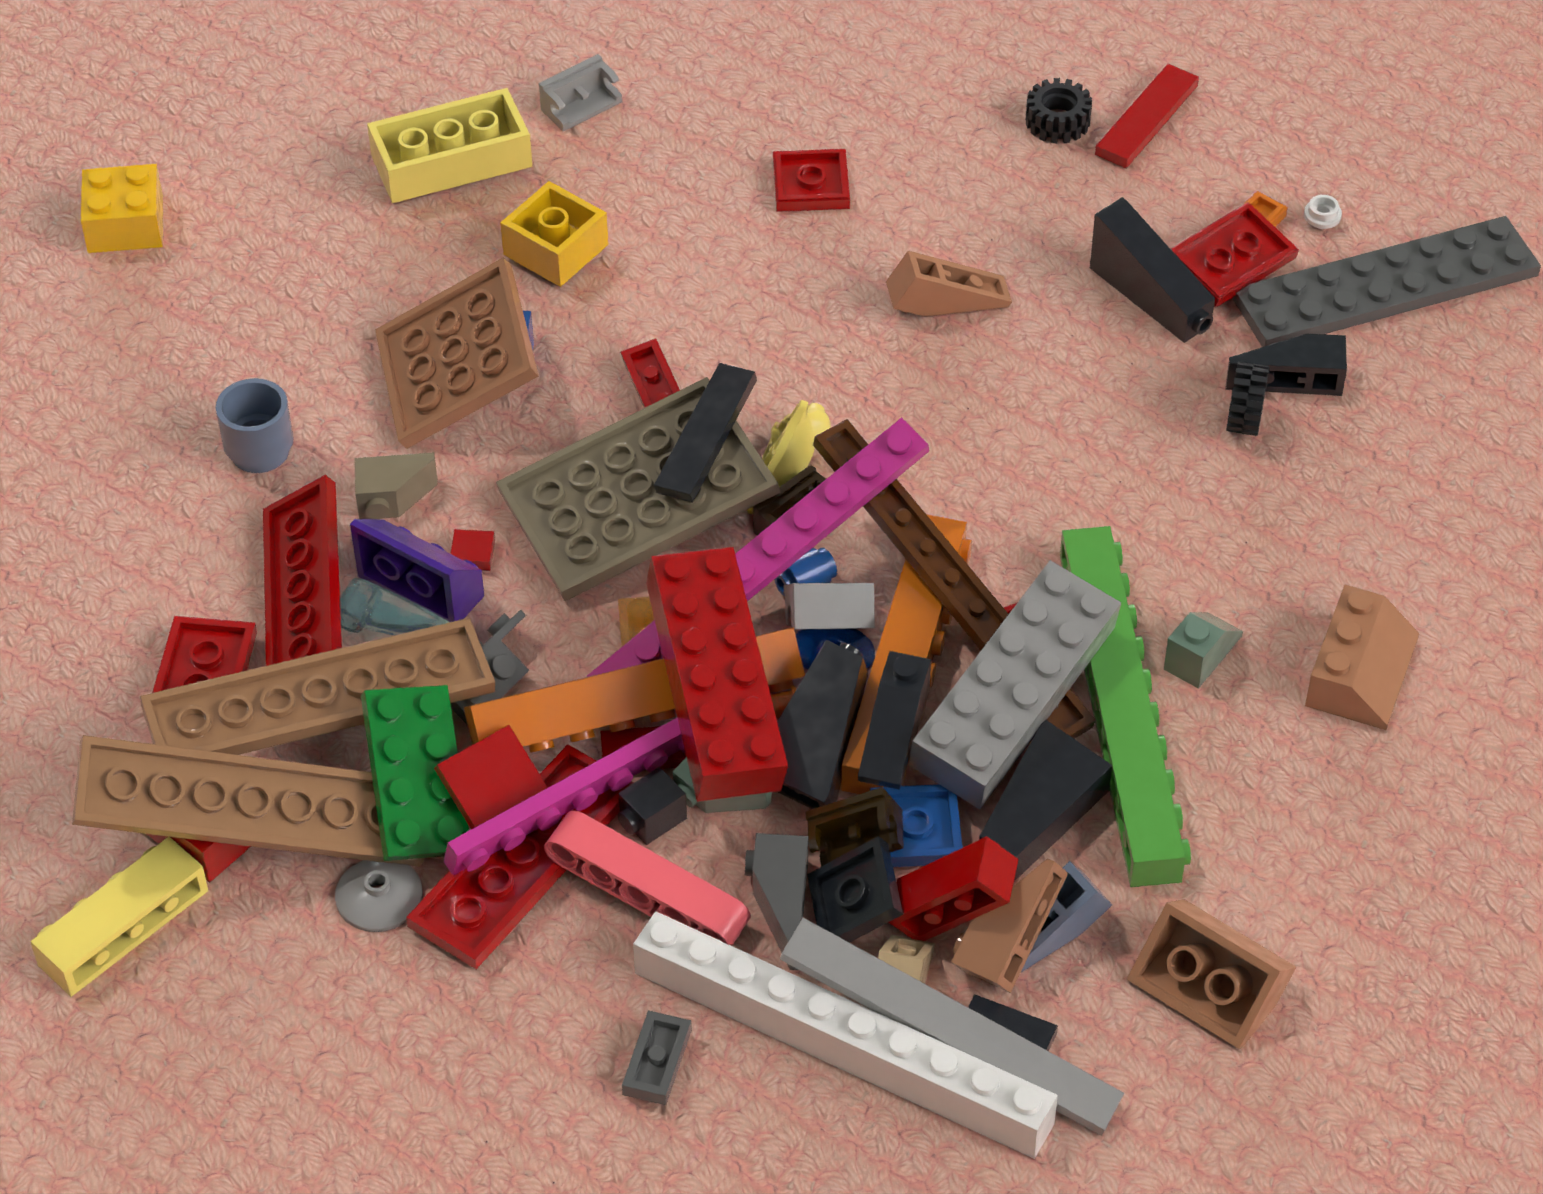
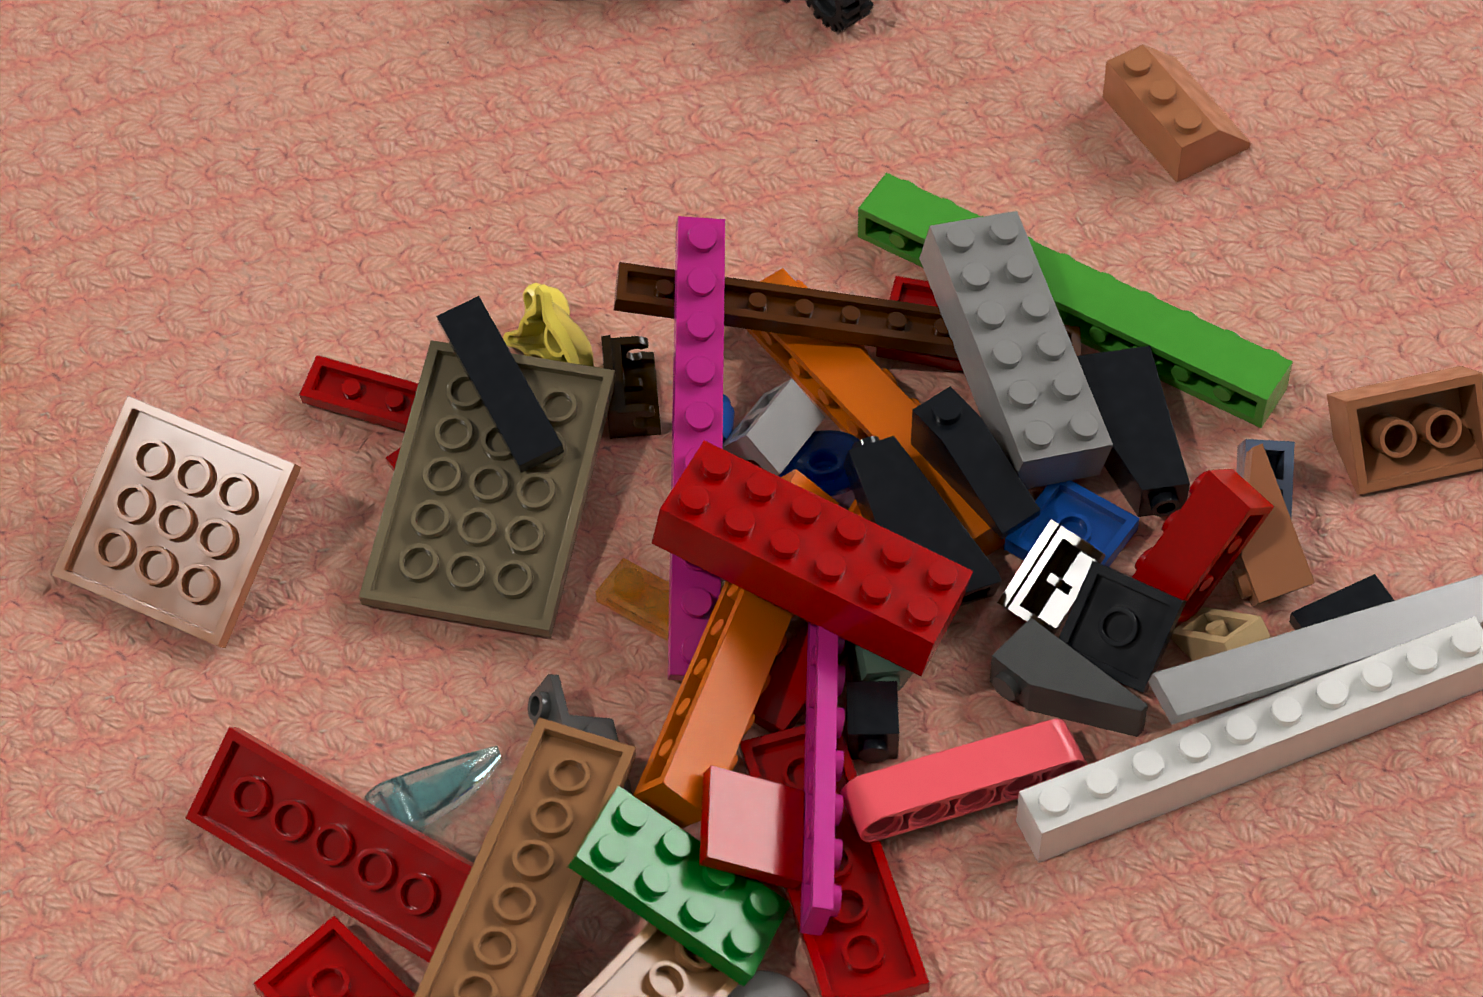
camera: 50 degrees left, 5 degrees up
(255, 424) = (74, 728): sand blue piece -> none
(392, 483) = (267, 689): dark tan slope -> none
(415, 569) = (407, 731): dark purple slope -> none
(474, 546) = (414, 672): red tile -> none
(554, 233) = (99, 348): yellow brick -> none
(656, 1057) = (1162, 903): dark grey plate -> none
(811, 180) = (236, 119): red tile -> none
(943, 287) = (479, 109): nougat slope -> none
(1199, 646) = (1062, 206): sand green slope -> none

